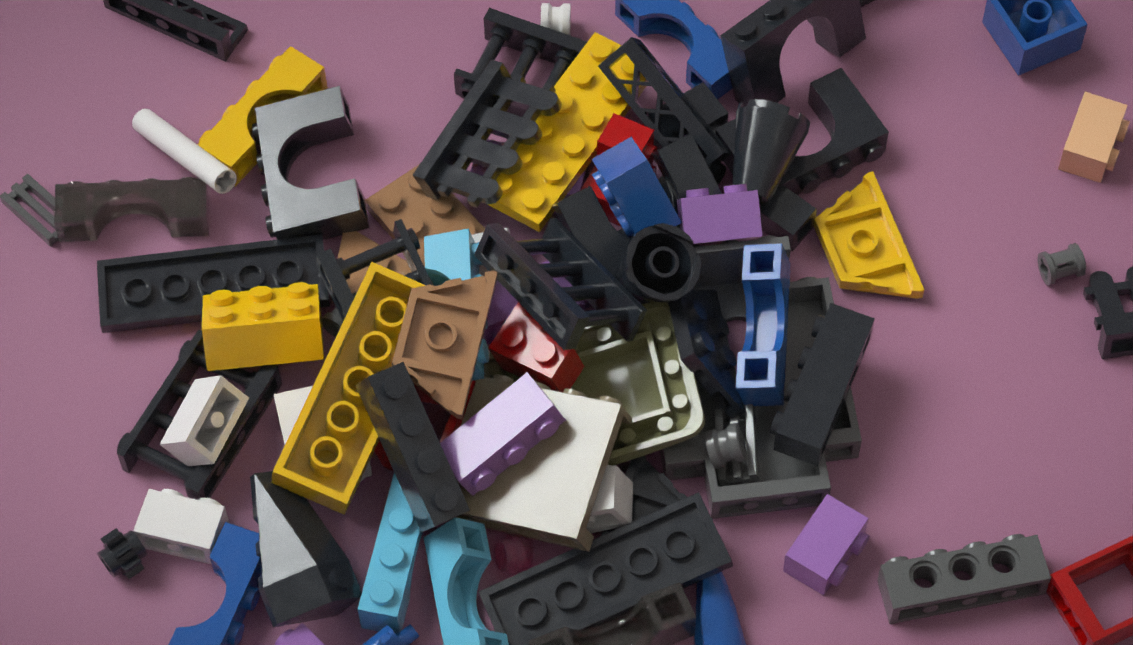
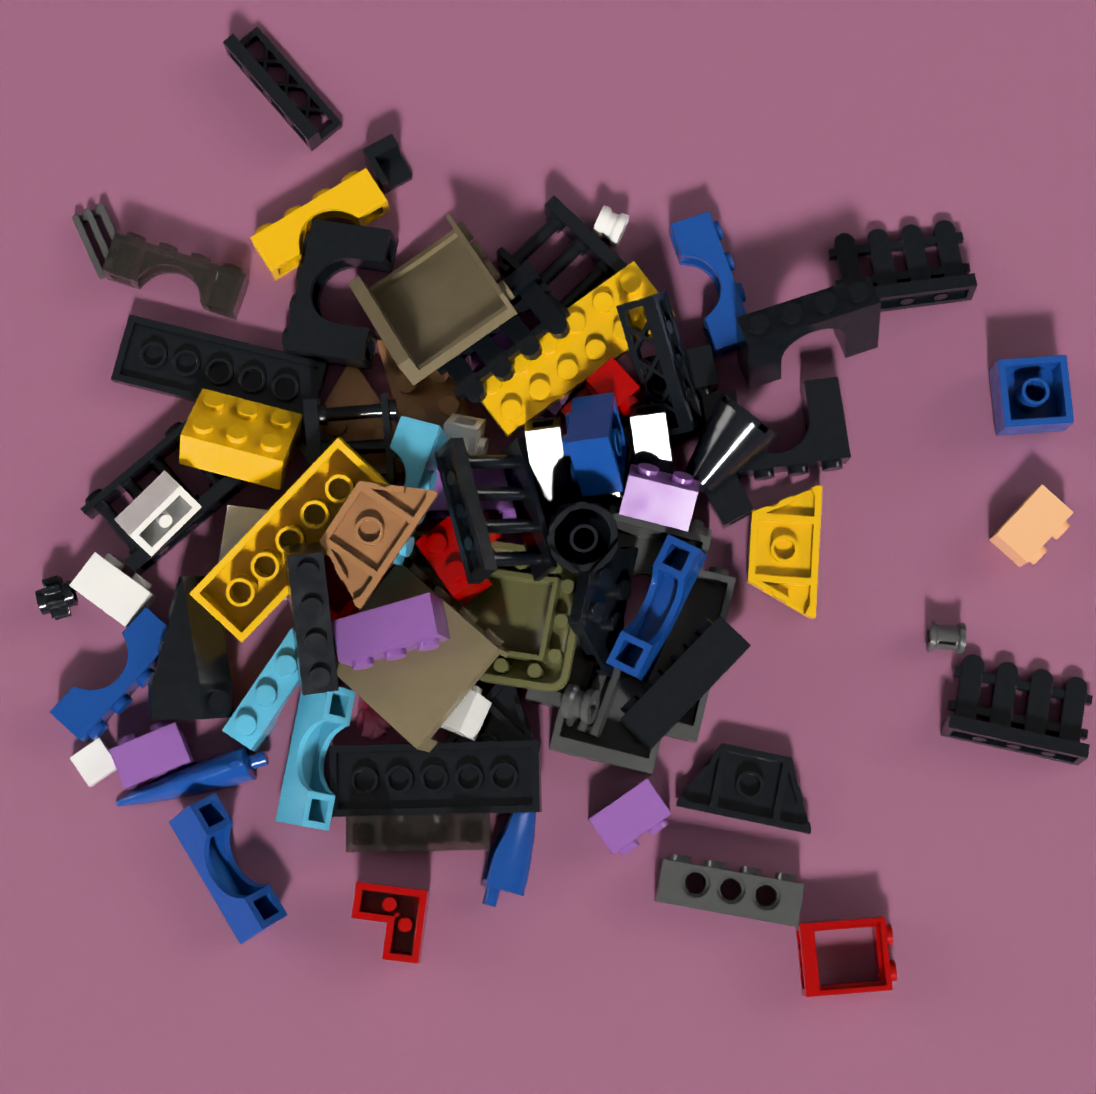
camera: 20 degrees right, 20 degrees up
(184, 151) = (237, 239): white piece -> none
(303, 36) = (387, 163): none -> black panel
(416, 129) = (436, 303): none -> dark tan panel
(935, 474) = (748, 788): none -> black wing

